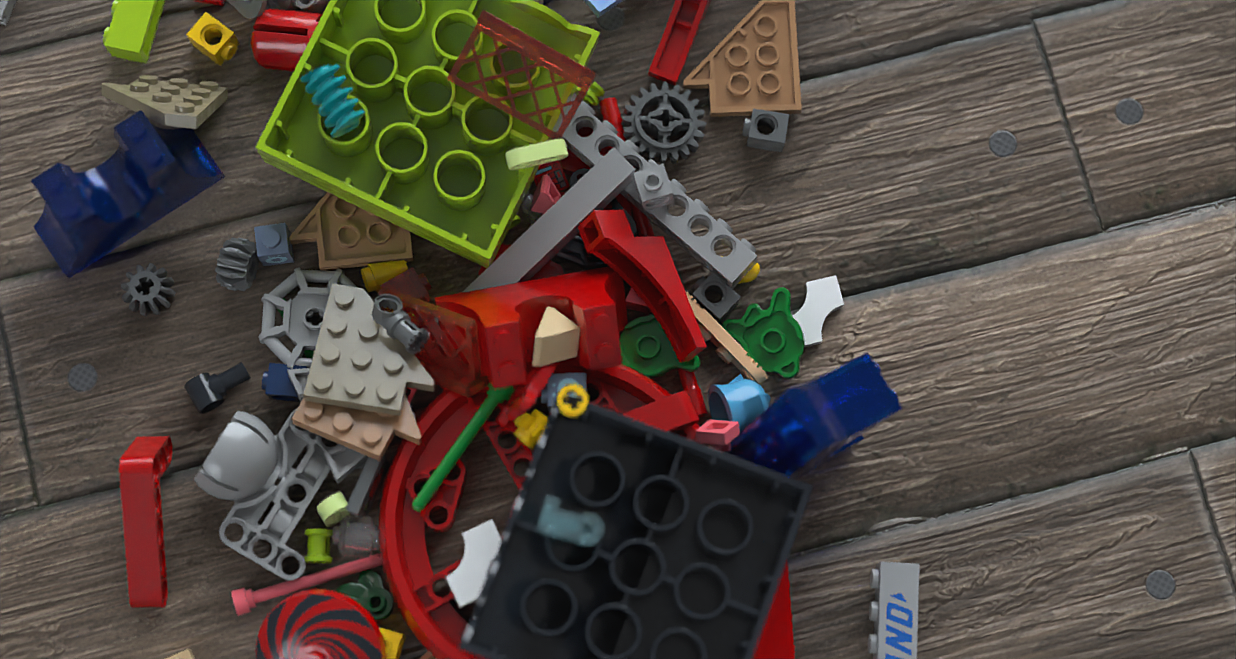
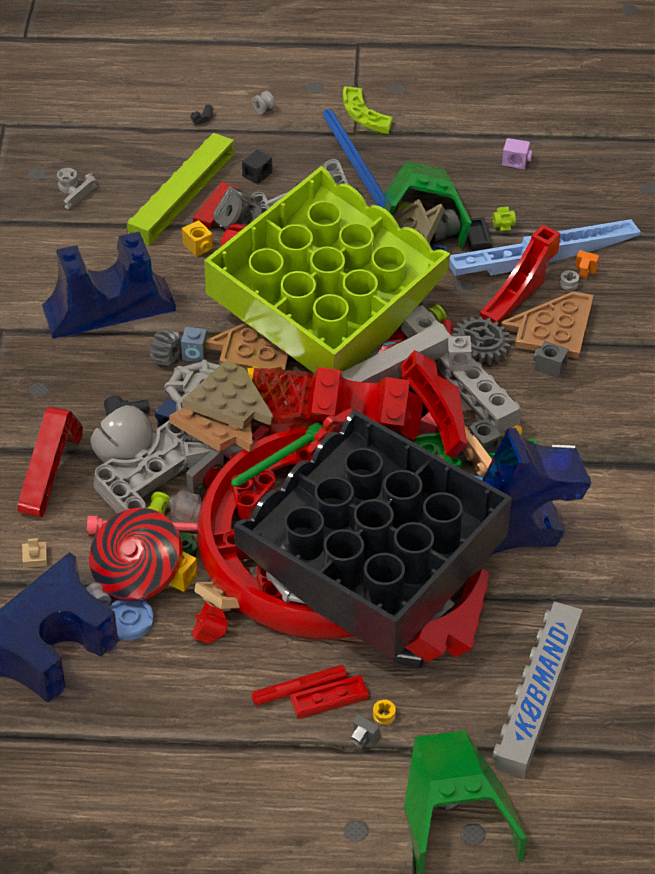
camera: 20 degrees right, 30 degrees down
(158, 293) = (101, 350): dark grey gear -> none
(169, 102) = (167, 253): dark tan wing -> none
(333, 99) = (264, 241): teal piece -> none
(333, 509) = (172, 483): yellowish green beam -> none
(399, 323) = (261, 381): dark grey connector -> none
(533, 50) = (406, 250): clear red fence -> none
(536, 154) = (385, 302): yellowish green beam -> none
(555, 339) = (361, 399): tan slope -> none
(564, 525) = (333, 472): clear light blue leg -> none
(566, 408) = (361, 419): yellow bush -> none

